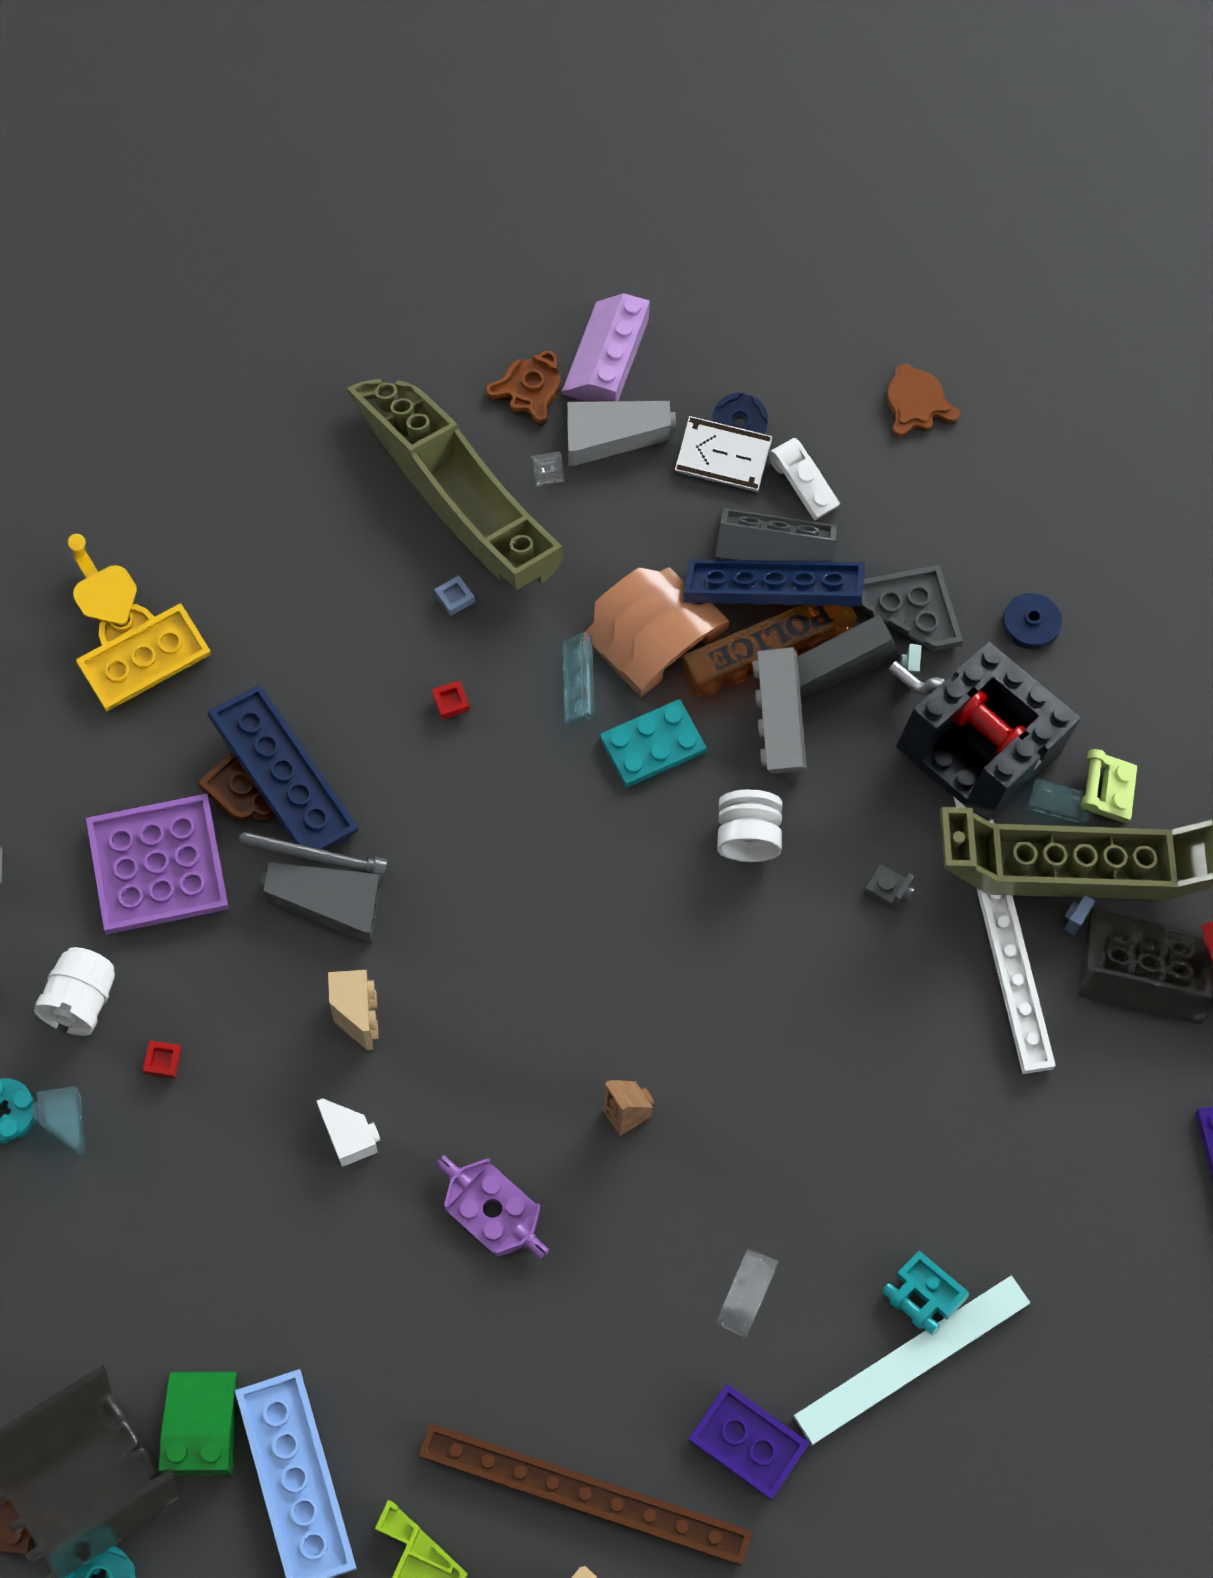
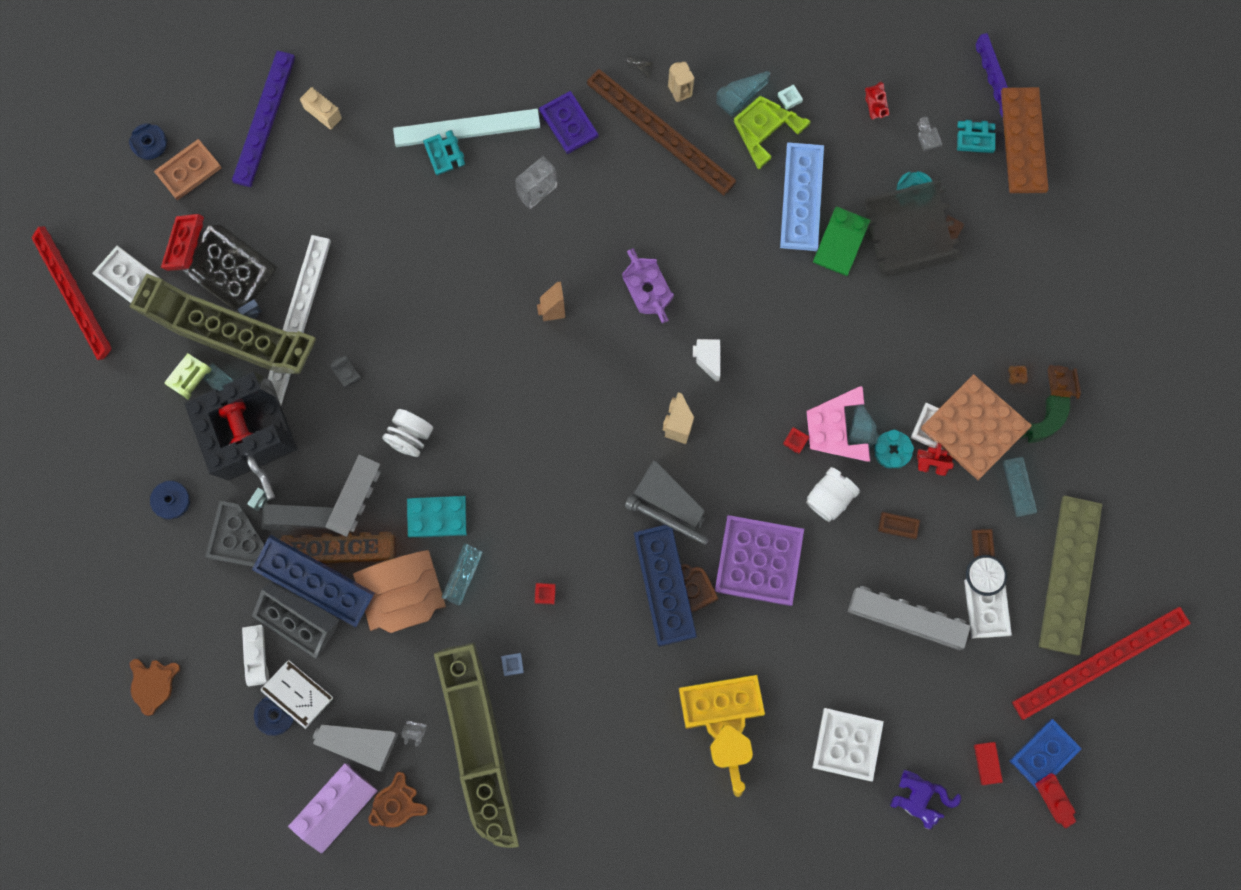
camera: 155 degrees left, 10 degrees up
(114, 1094) = (829, 428): none -> bright pink wing
(1162, 1282) = (321, 108): none -> tan brick

